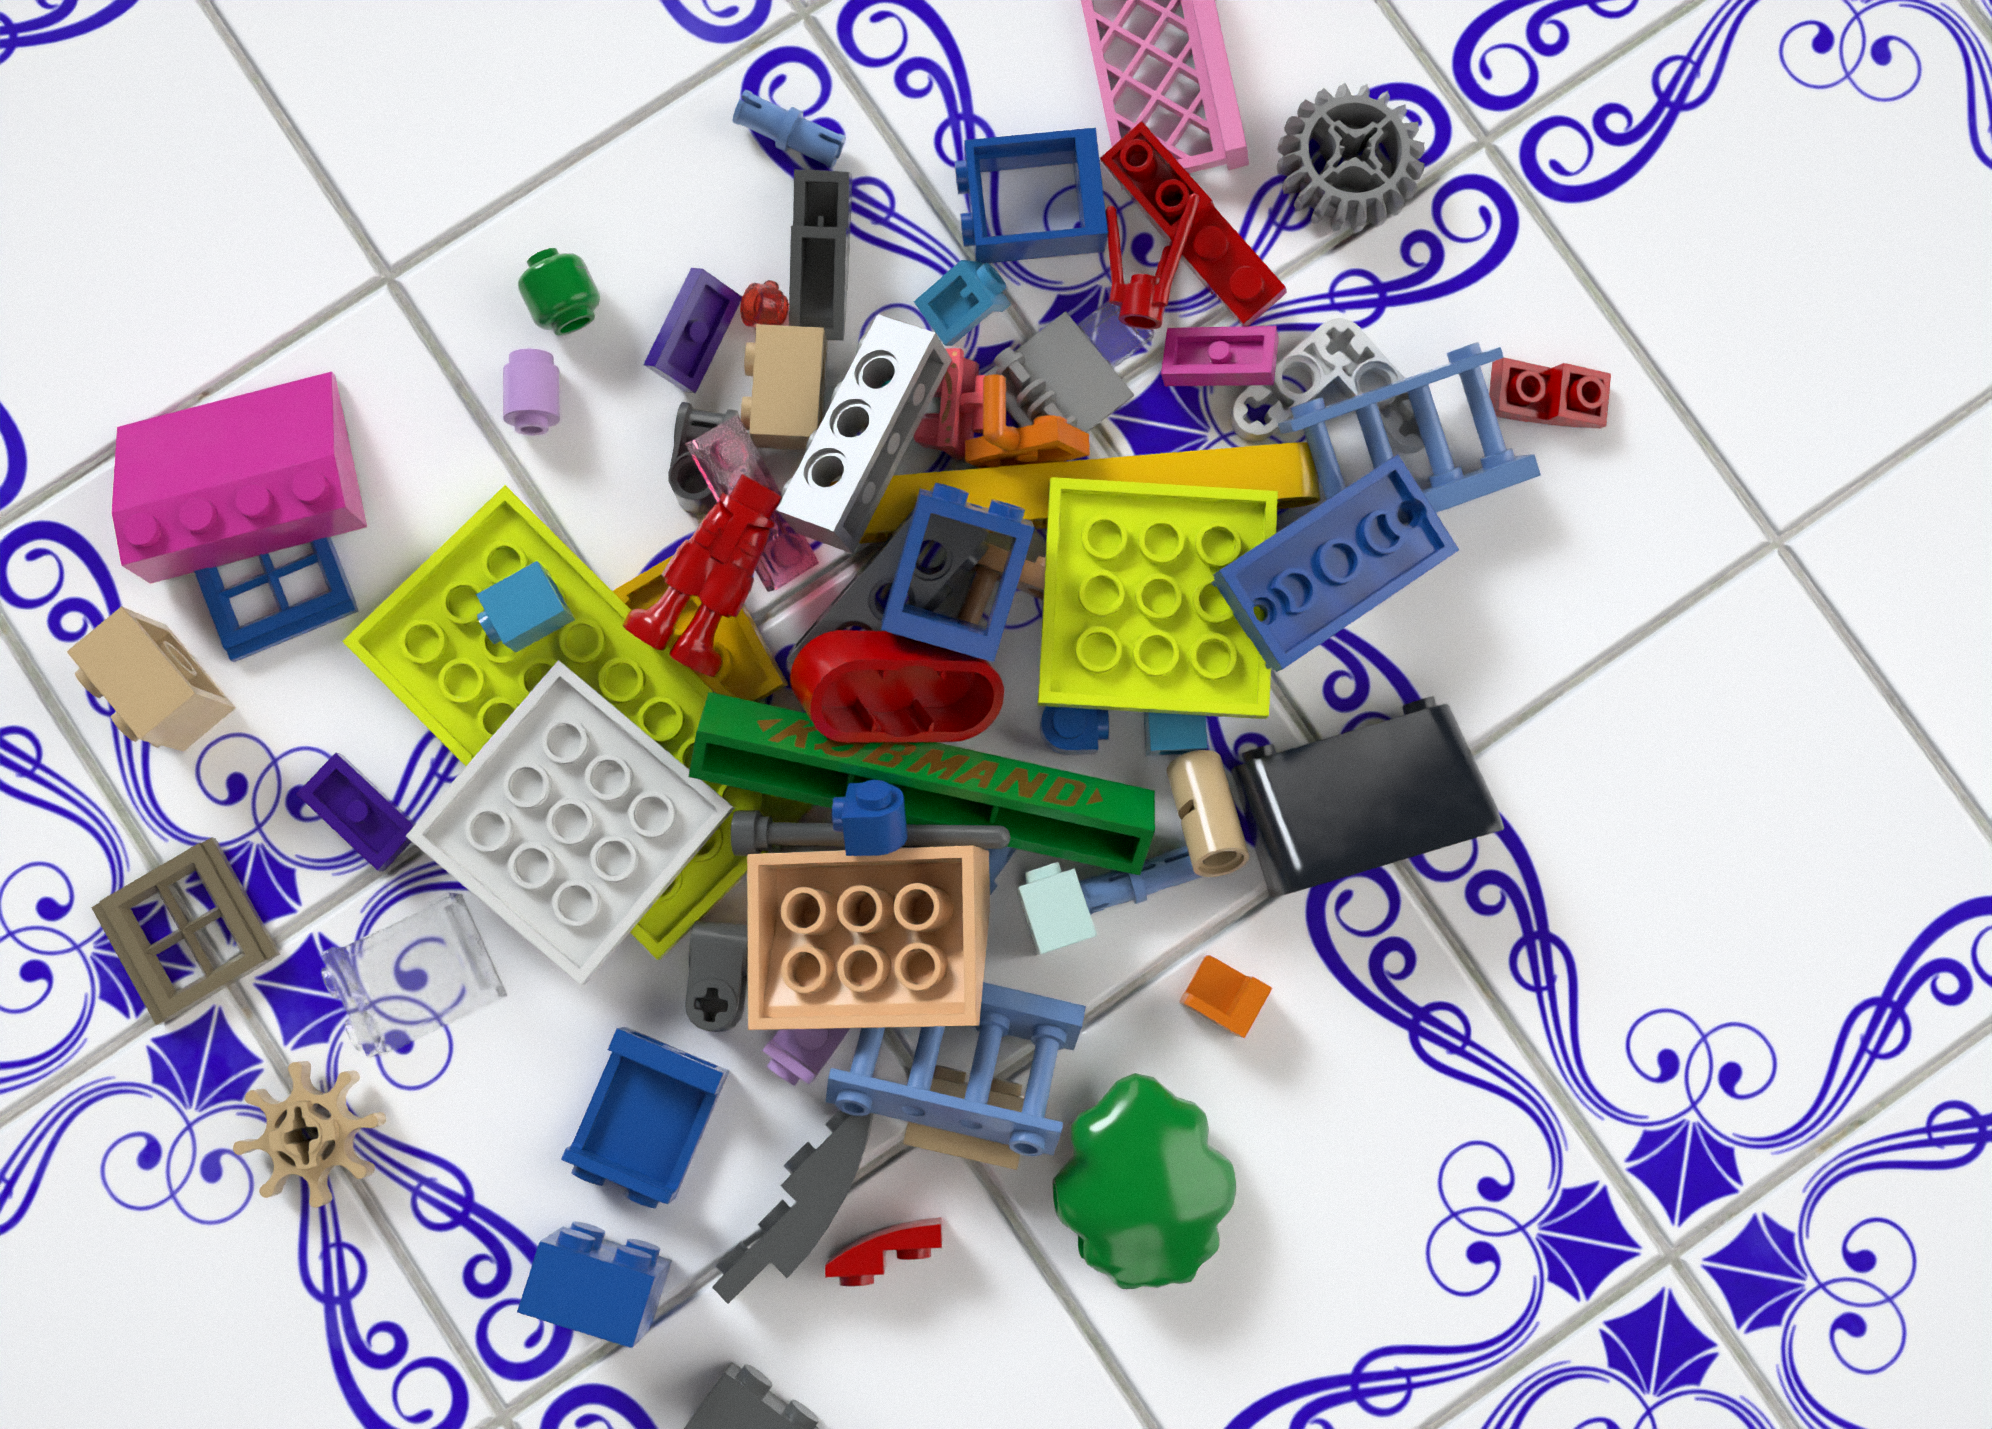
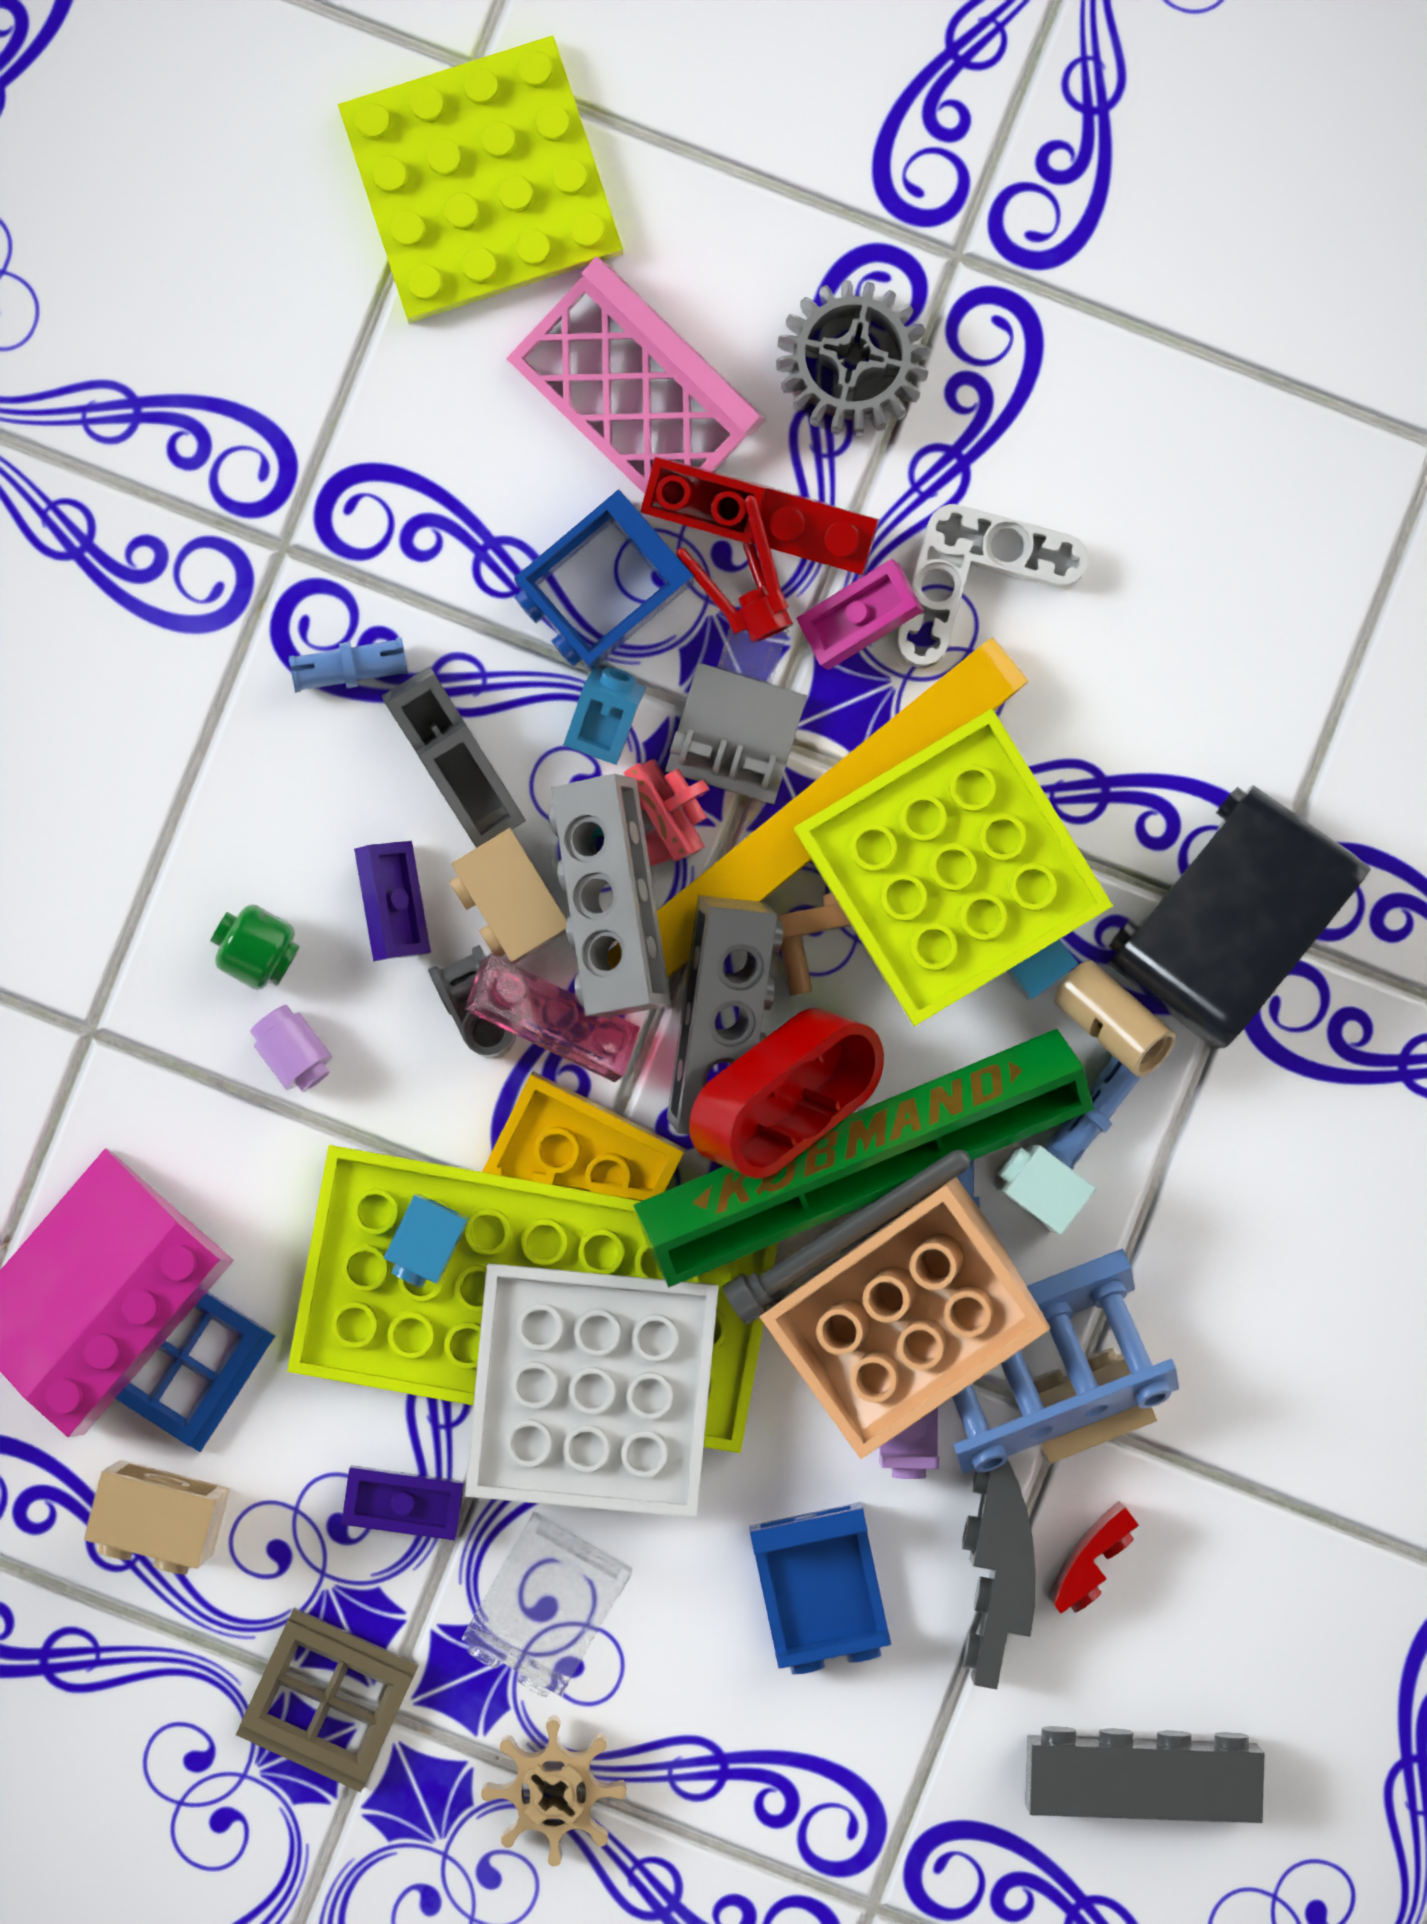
camera: 30 degrees left, 5 degrees up
(595, 1284) = (878, 1746): blue brick -> none
(714, 567) = (566, 1099): red piece -> none
(717, 963) = (795, 1419): dark grey piece -> none
(764, 305) = (438, 838): clear red plate -> none
(870, 818) = (845, 1219): blue plate -> none
(940, 628) = (793, 1021): blue window -> none
(1043, 442) = (737, 820): orange plate -> none
(1074, 729) = (955, 1023): blue plate -> none
(1144, 1186) = (1269, 1361): green piece -> none
(1225, 996) = (1230, 1158): orange panel -> none
(1334, 564) = (1082, 739): blue piece -> none
(1448, 483) = (1130, 593): medium blue fence -> none
(1550, 396) = (1161, 450): red slope -> none

